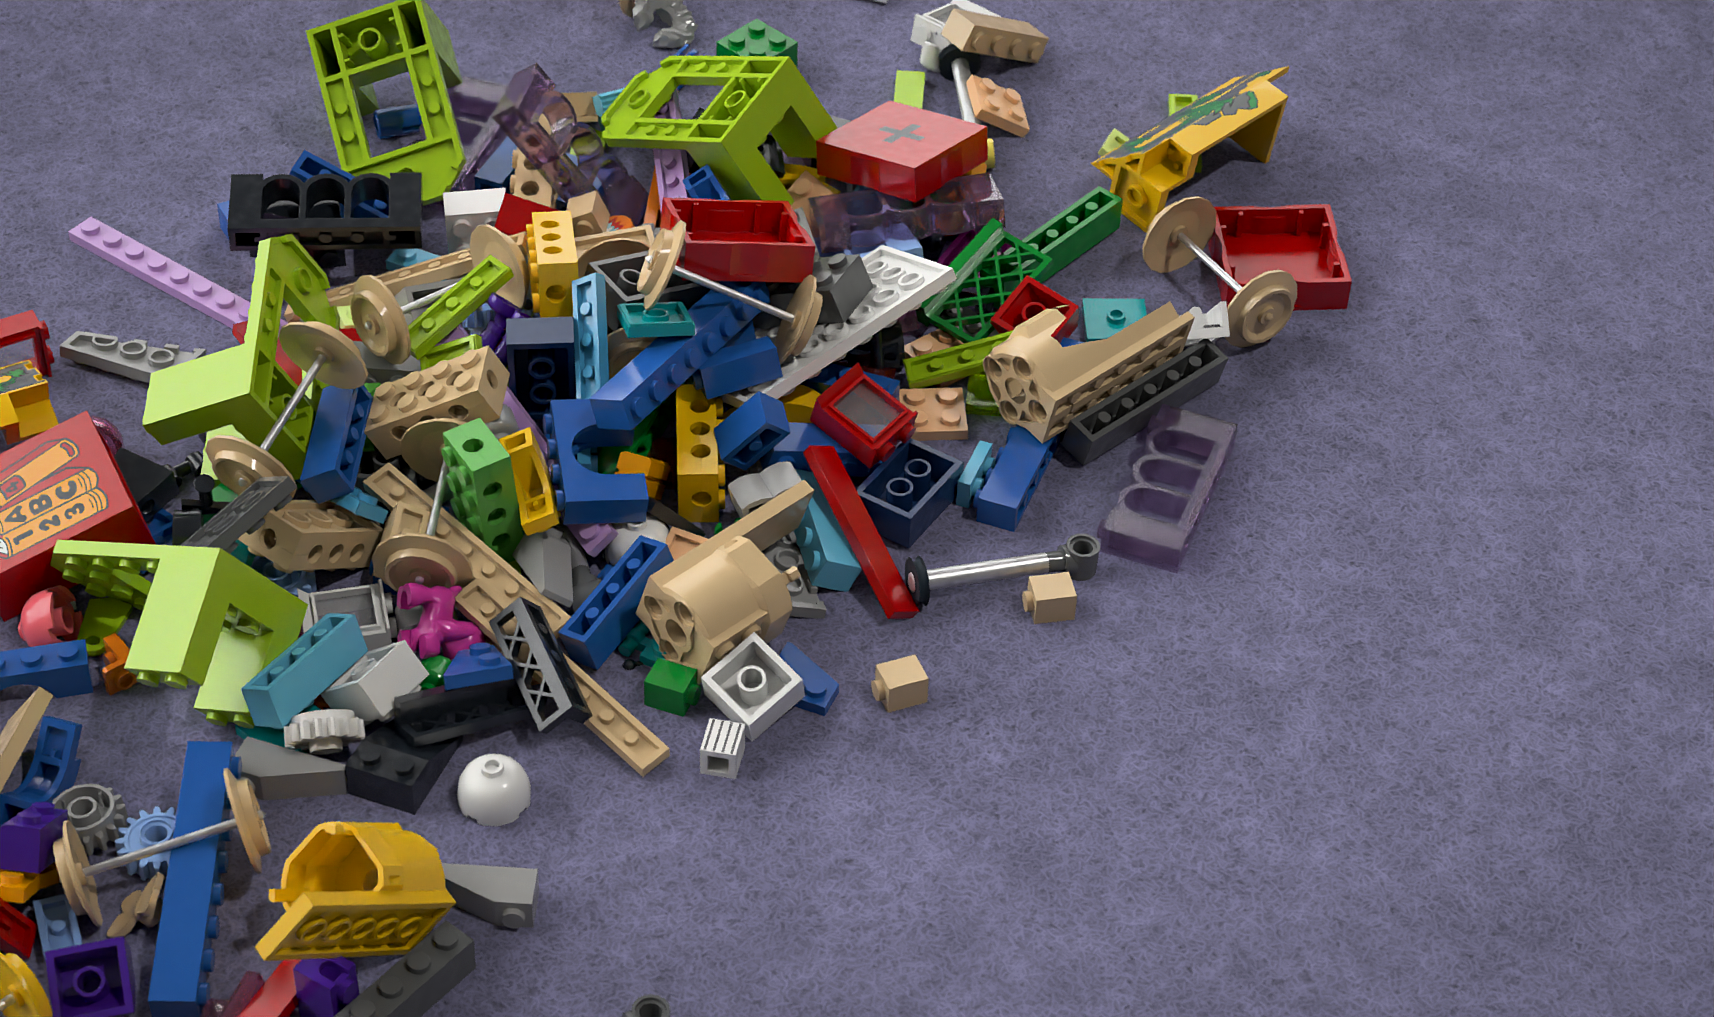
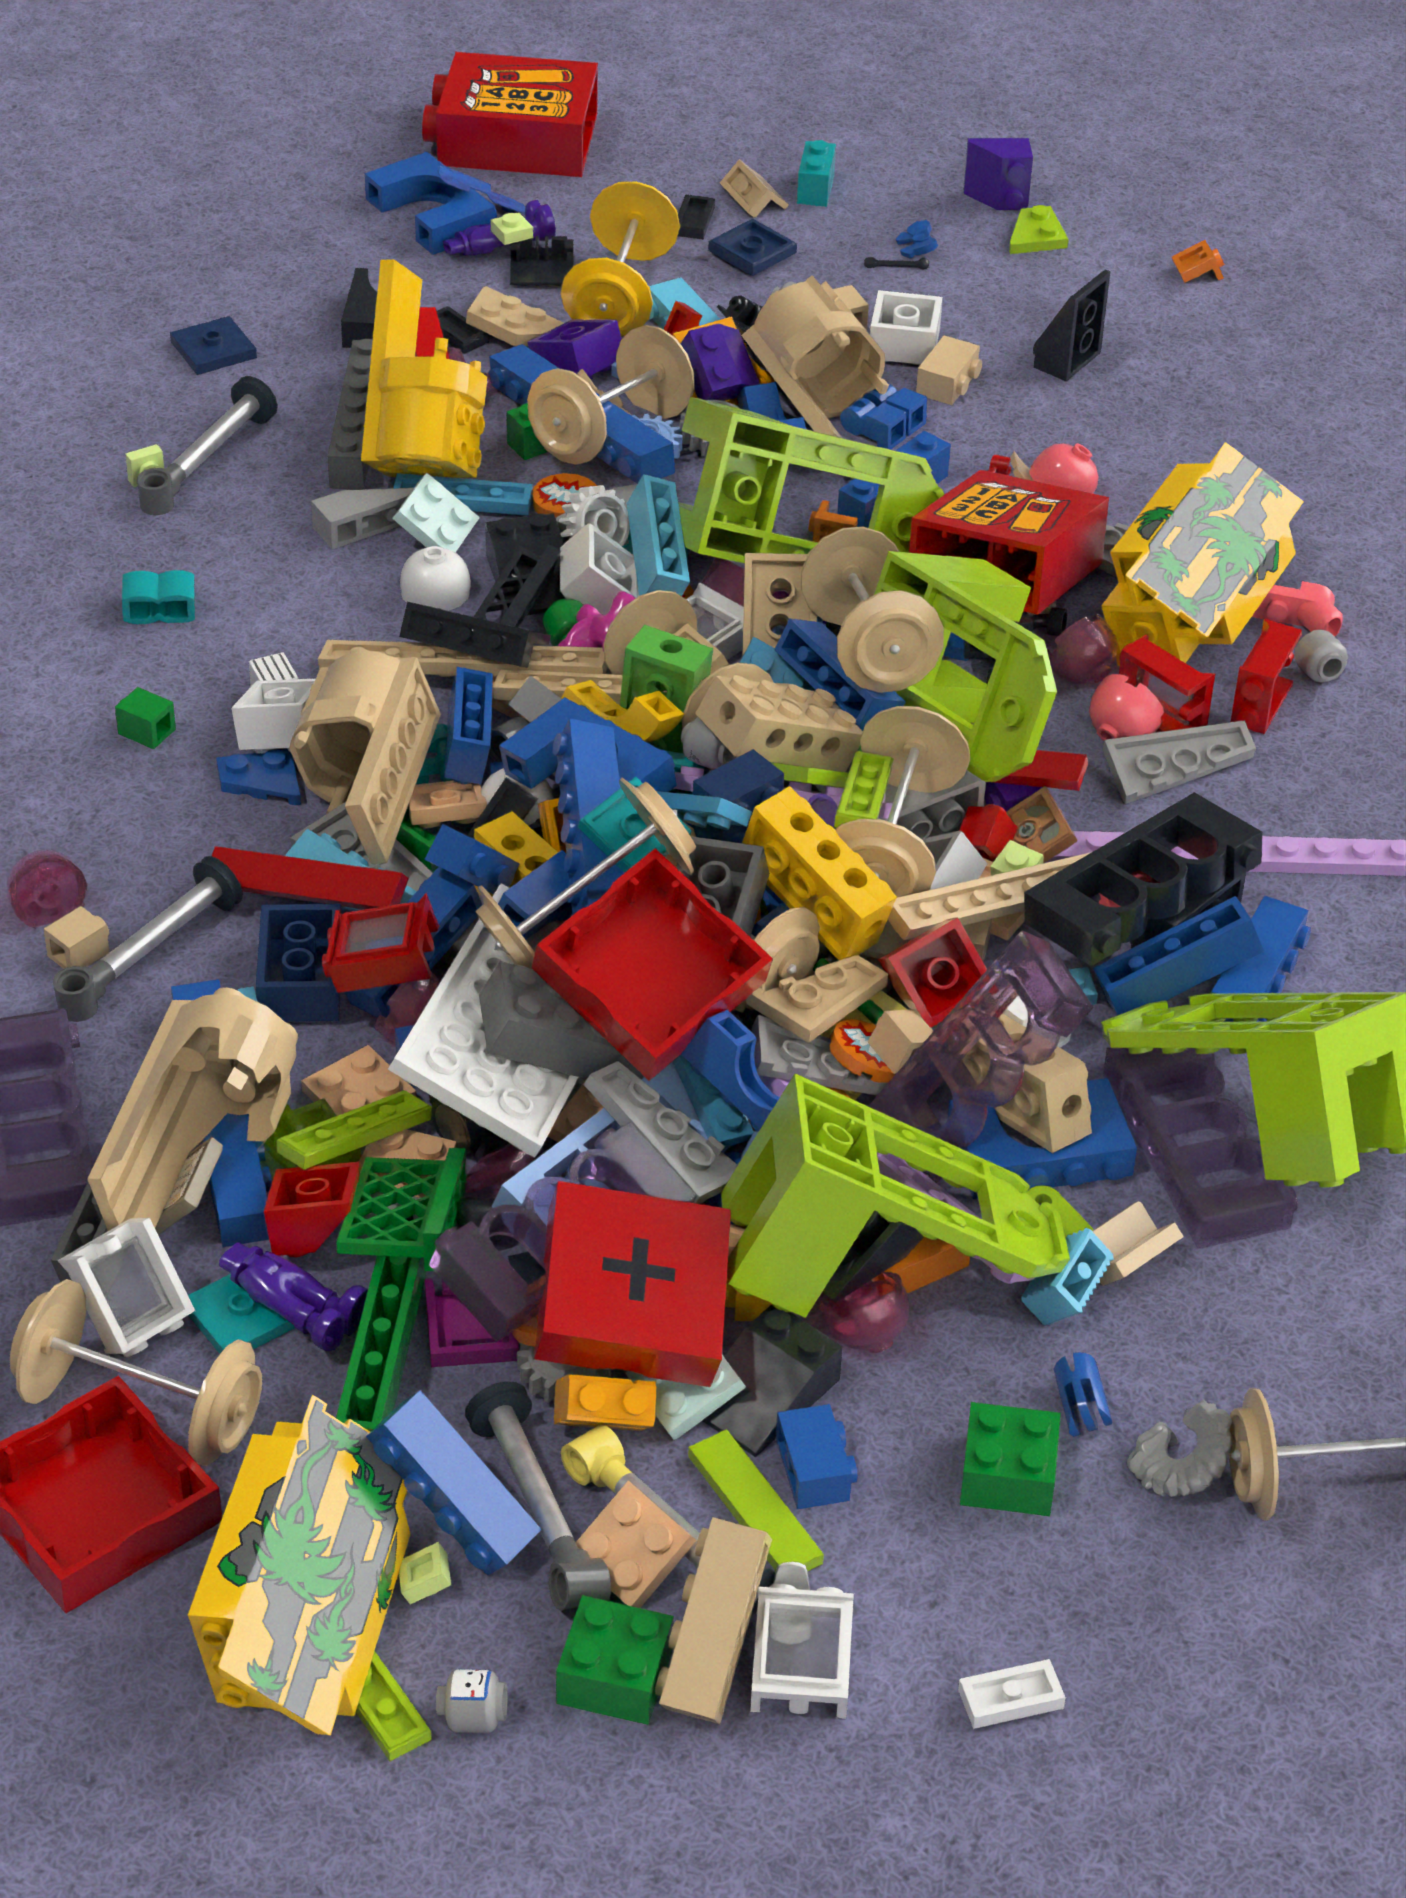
camera: 145 degrees right, 0 degrees up
(85, 383) = (1179, 687): none -> red window
(130, 387) = (1124, 710): none -> coral cylinder
(244, 513) = (785, 498): dark grey plate -> none
(247, 905) = (521, 434): none -> green brick
(289, 824) = (554, 491): none -> tile
(449, 831) = (435, 515): none -> light aqua plate
(477, 666) = (529, 608): blue wing -> none
(745, 892) = (158, 597): none -> teal brick
(756, 489) = (406, 849): light grey brick -> none
(855, 767) = (145, 717): none -> green brick
(857, 97) = (815, 1456): none -> blue brick
(900, 683) = (161, 800): tan brick -> none
(1015, 183) = (498, 1413): none -> piece
(1049, 640) = (45, 881): none -> clear pink cylinder
(1051, 70) = (613, 1659): none -> green brick
(1081, 141) = (453, 1483): none -> brick
(1093, 301) = (295, 1294): none -> dark purple piece
(1139, 86) = (472, 1701): none -> light grey head

